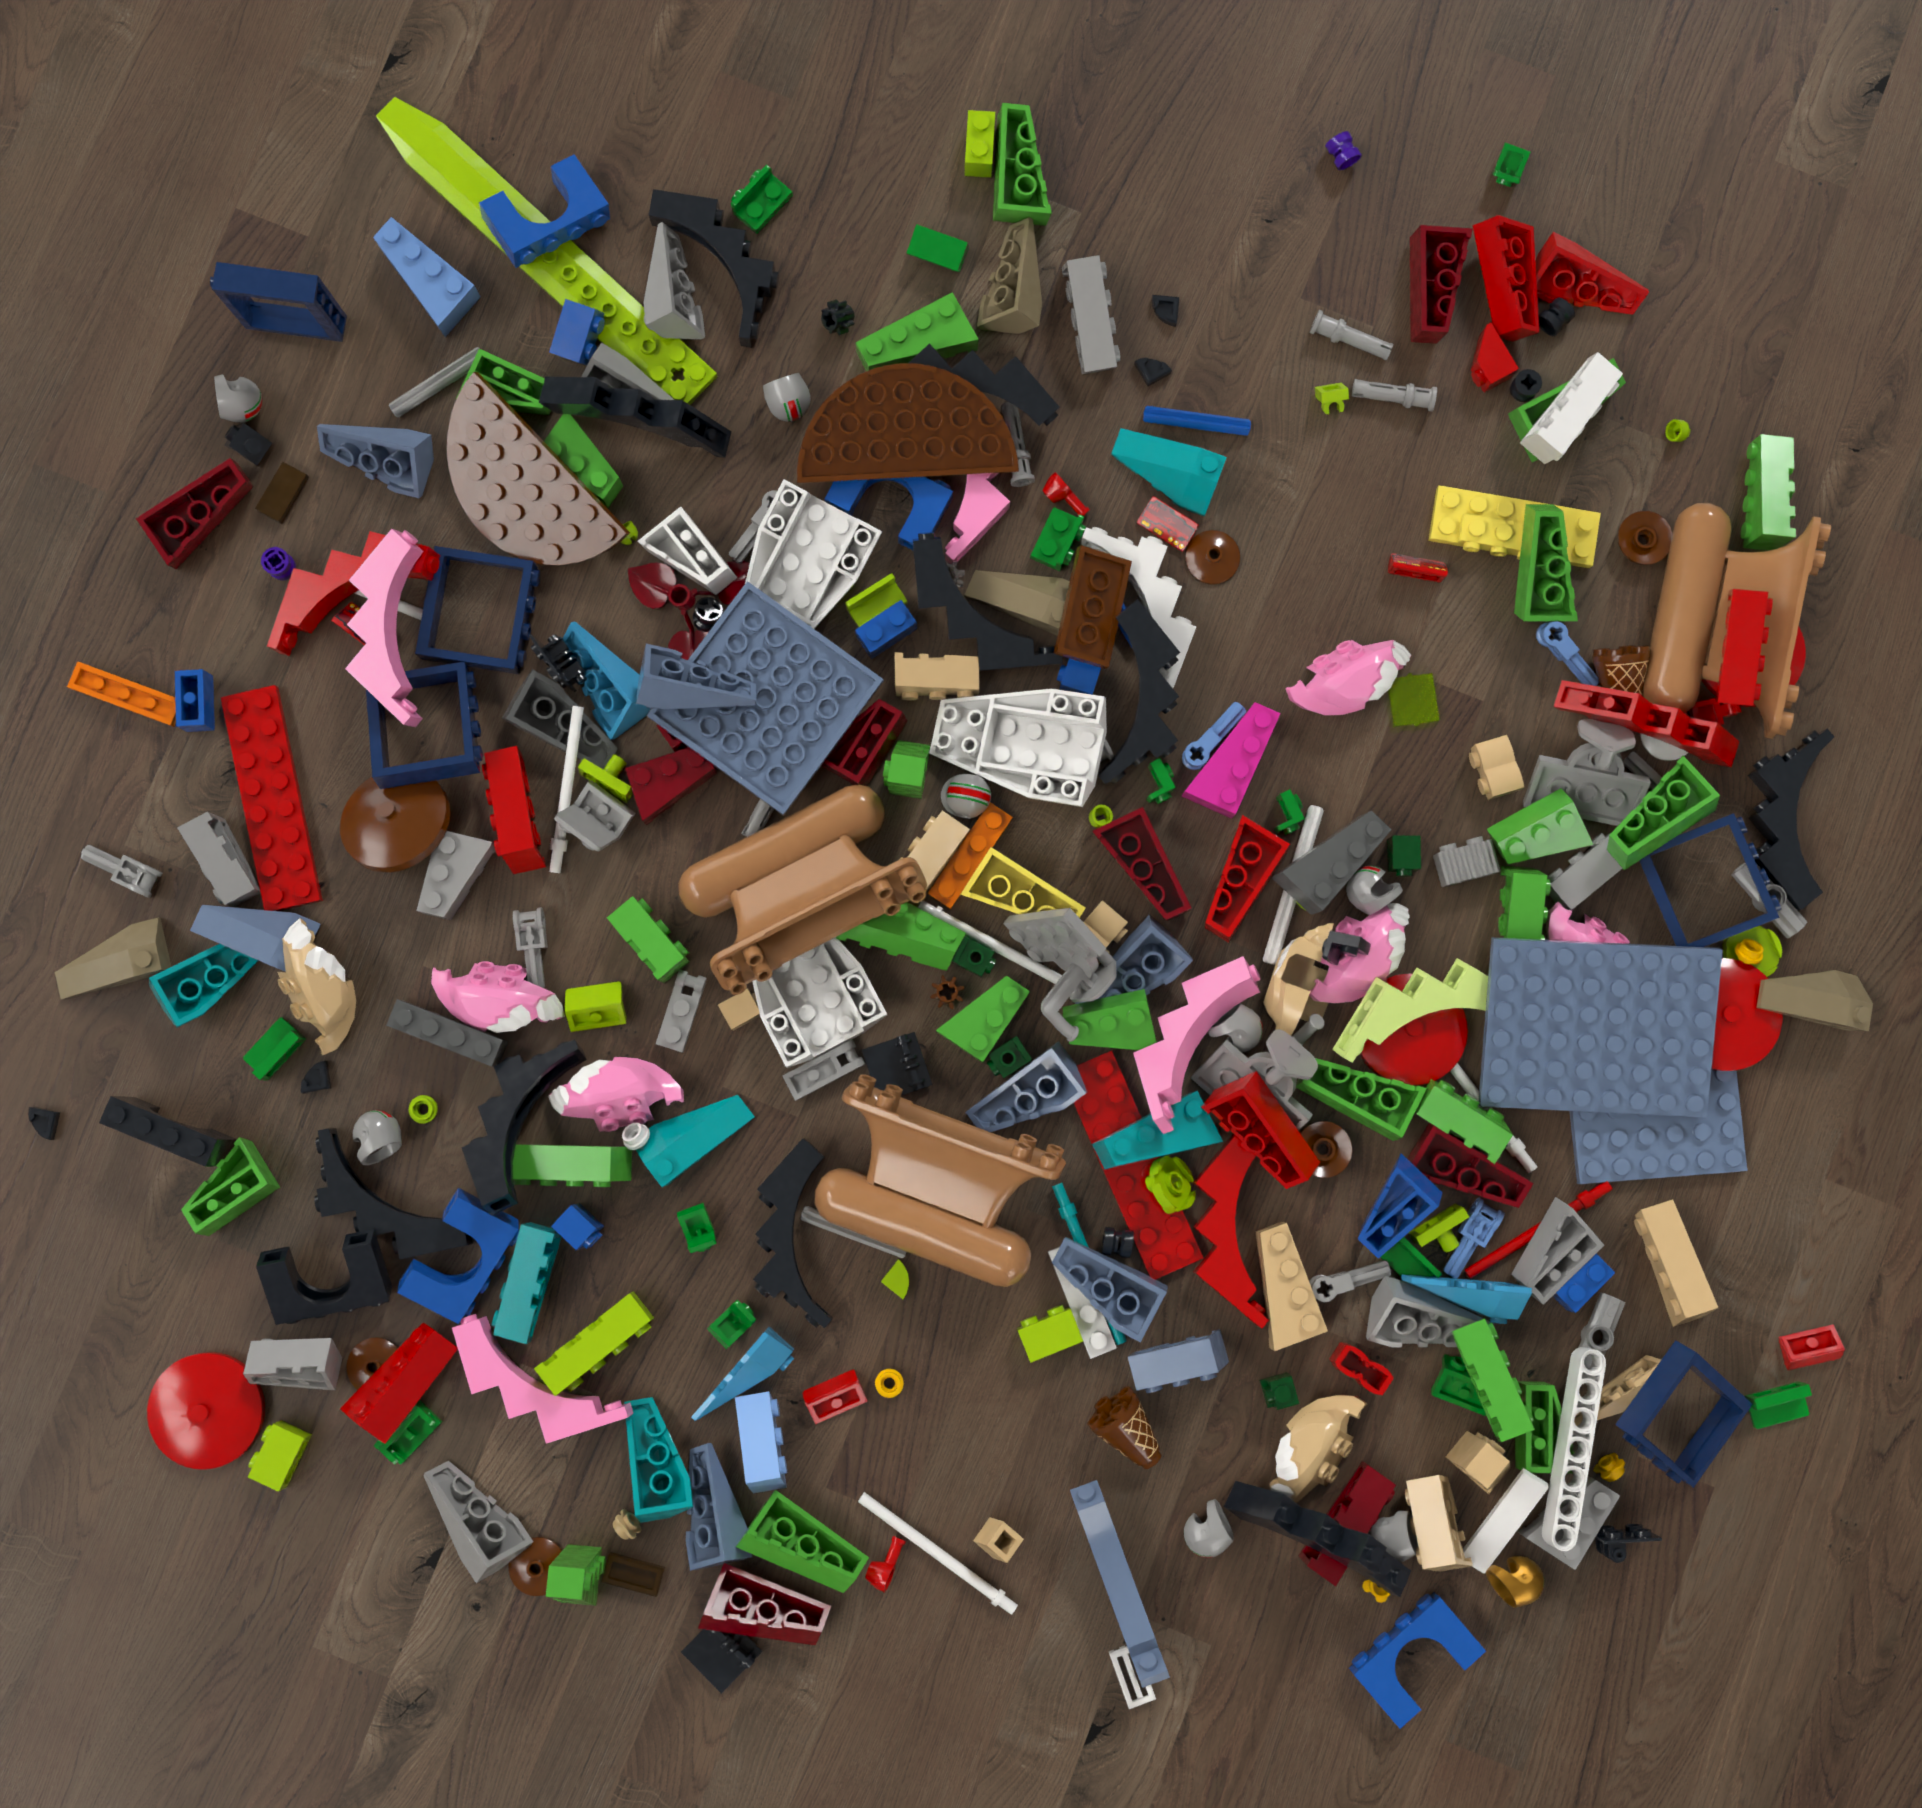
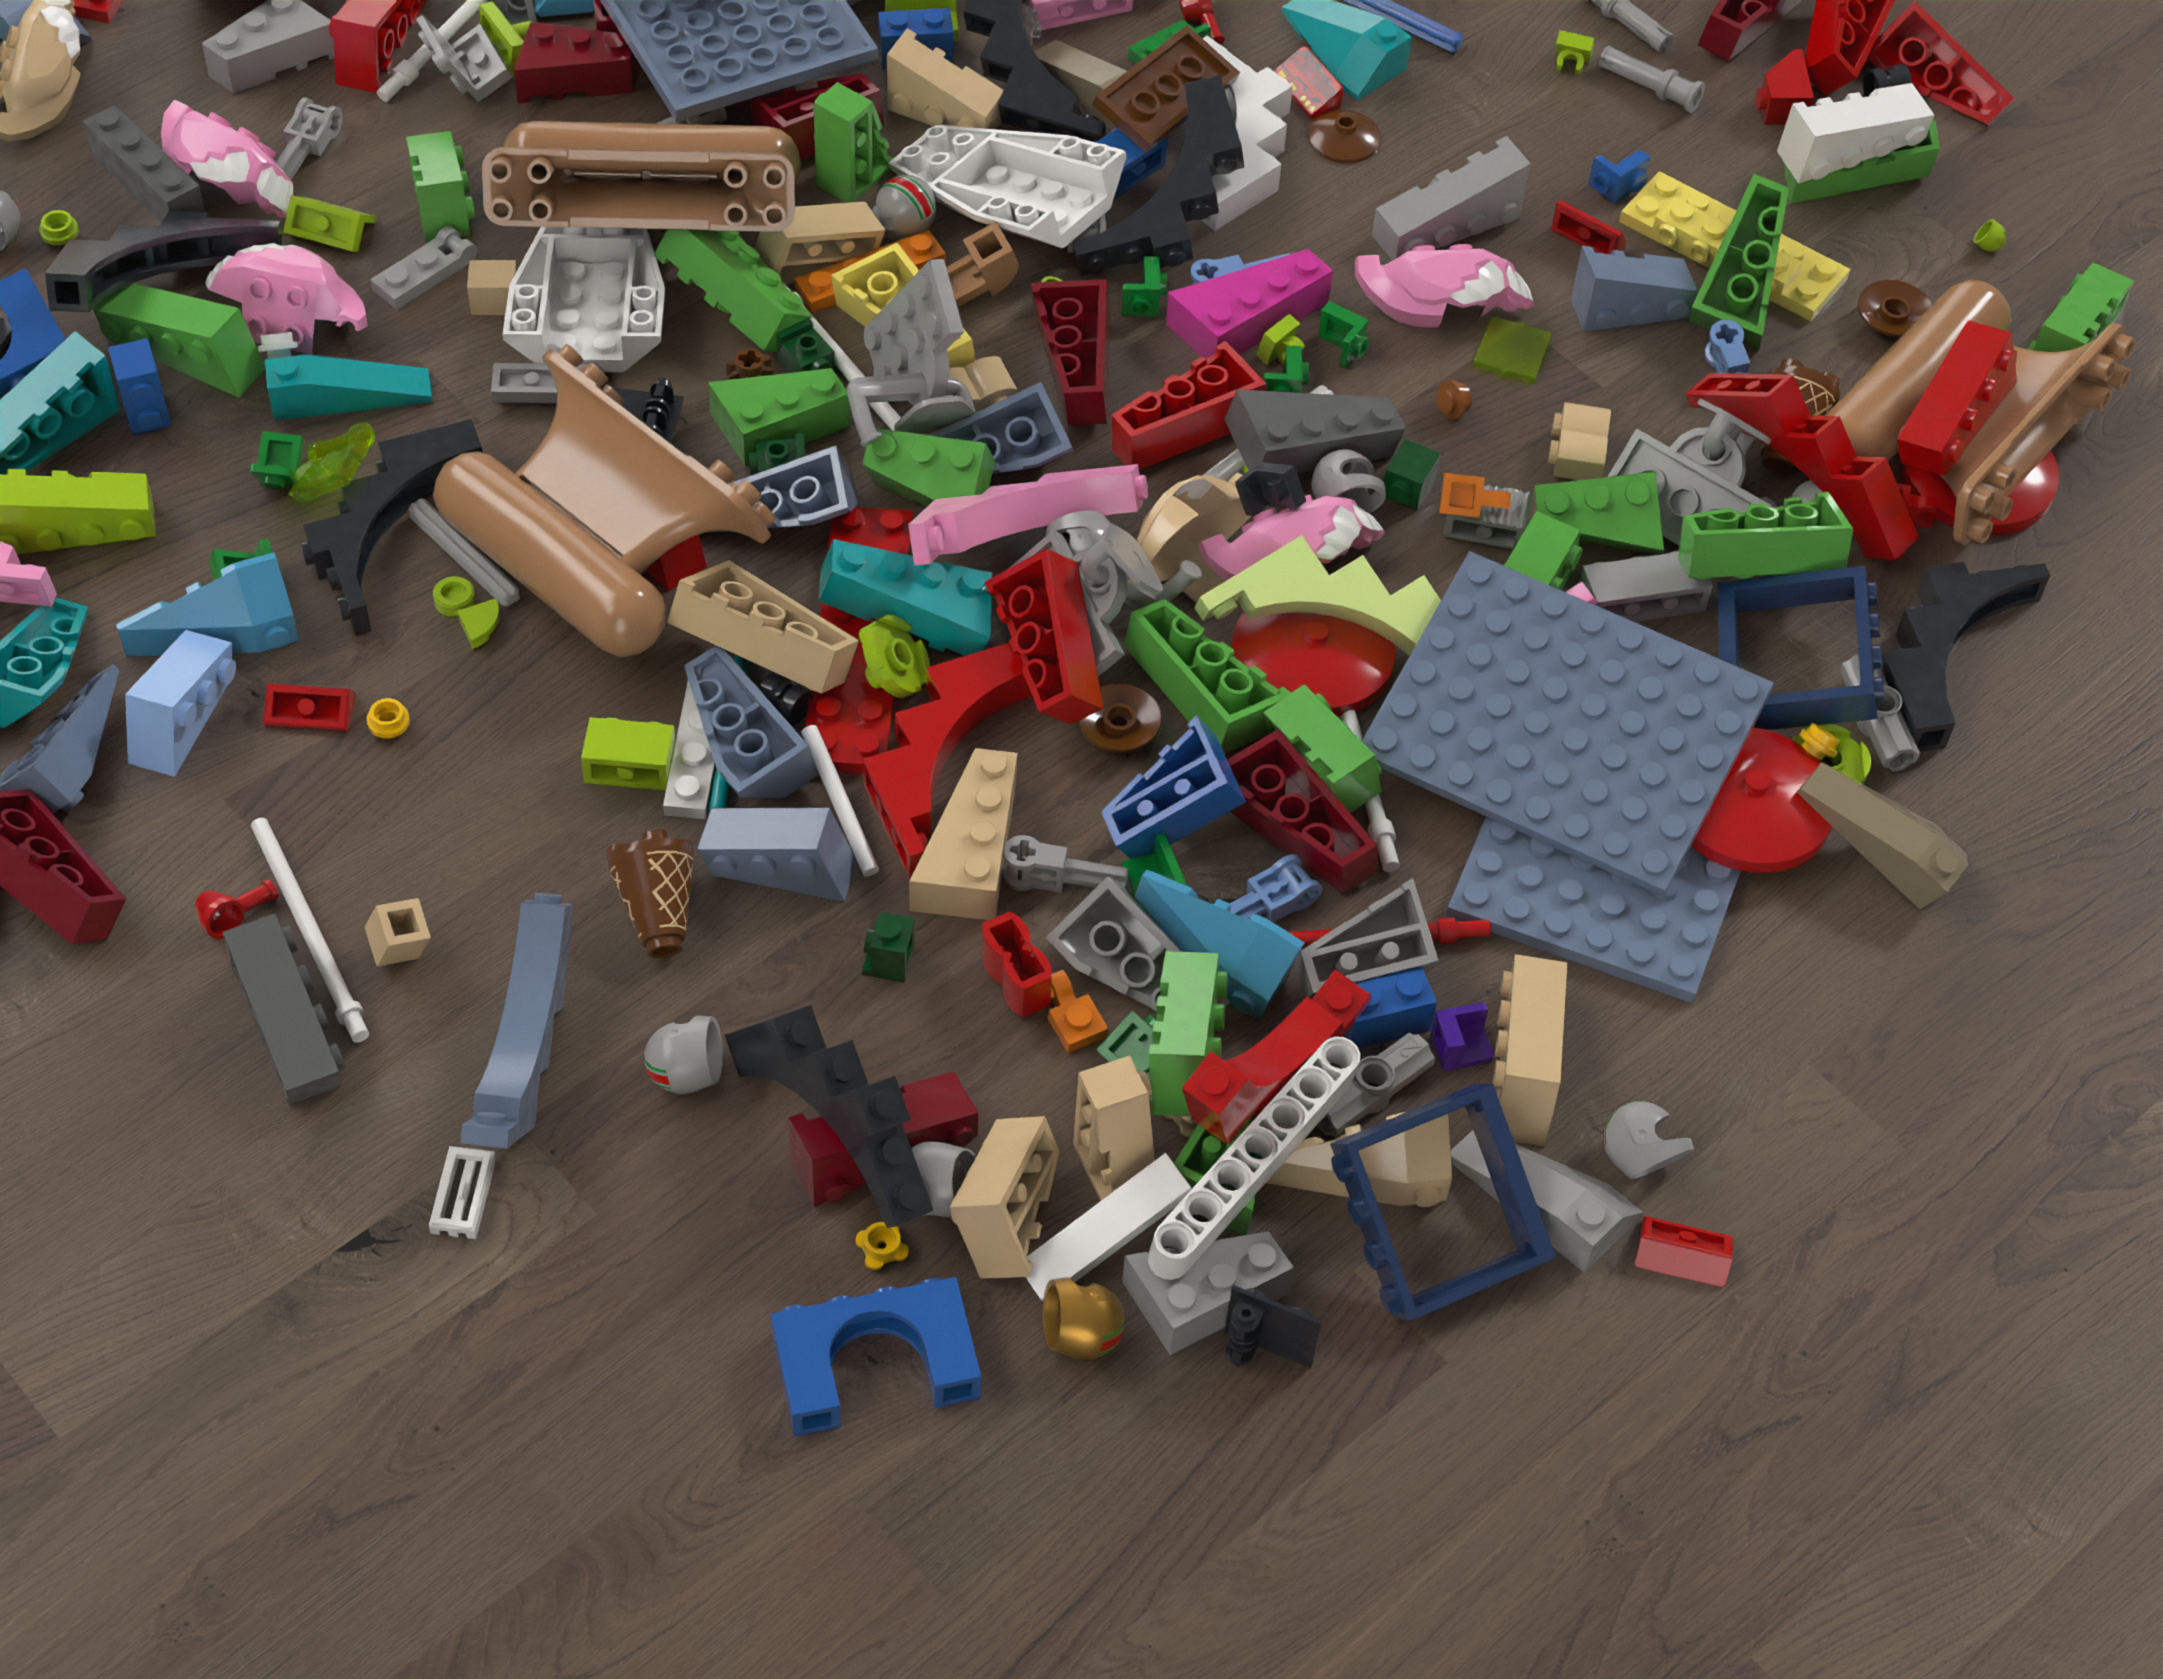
camera: 30 degrees right, 30 degrees down
(737, 1227) = (332, 463): none -> clear neon green plate
(802, 1544) = (141, 815): bright green wedge -> none
(868, 1267) = (453, 595): none -> lime tile
(965, 1625) = (282, 1009): none -> dark grey wedge
(1046, 828) = (987, 267): none -> medium nougat brick
(1087, 1215) = (762, 626): none -> tan wedge
(1192, 1301) = (840, 801): none -> white bar
(1268, 782) = (1276, 338): none -> lime tile
(1301, 746) = (1345, 331): none -> green bracket
(1315, 1445) = (902, 1020): tan animal -> none
(1323, 600) = (1457, 203): none -> light grey wedge
(1400, 772) = (1453, 399): none -> dark orange plate
(1406, 1375) = (1074, 1019): none -> orange plate
(1423, 504) = (1620, 179): none -> blue bracket
(1440, 1228) = (1224, 866): lime tile -> none
(1461, 871) = (1465, 496): none -> orange plate
(1474, 617) = (1630, 290): none -> sand blue wedge
(1553, 1406) = (1231, 1091): none -> red arch
(1610, 1467) = (1304, 1250): yellow plate -> none
(1630, 1274) = (1461, 1036): none -> dark purple panel
(1734, 1352) = (1577, 1209): none -> light grey wedge
(1760, 1299) = (1632, 1140): none -> light grey helmet
(1779, 1404) = (1599, 1290): green panel -> none

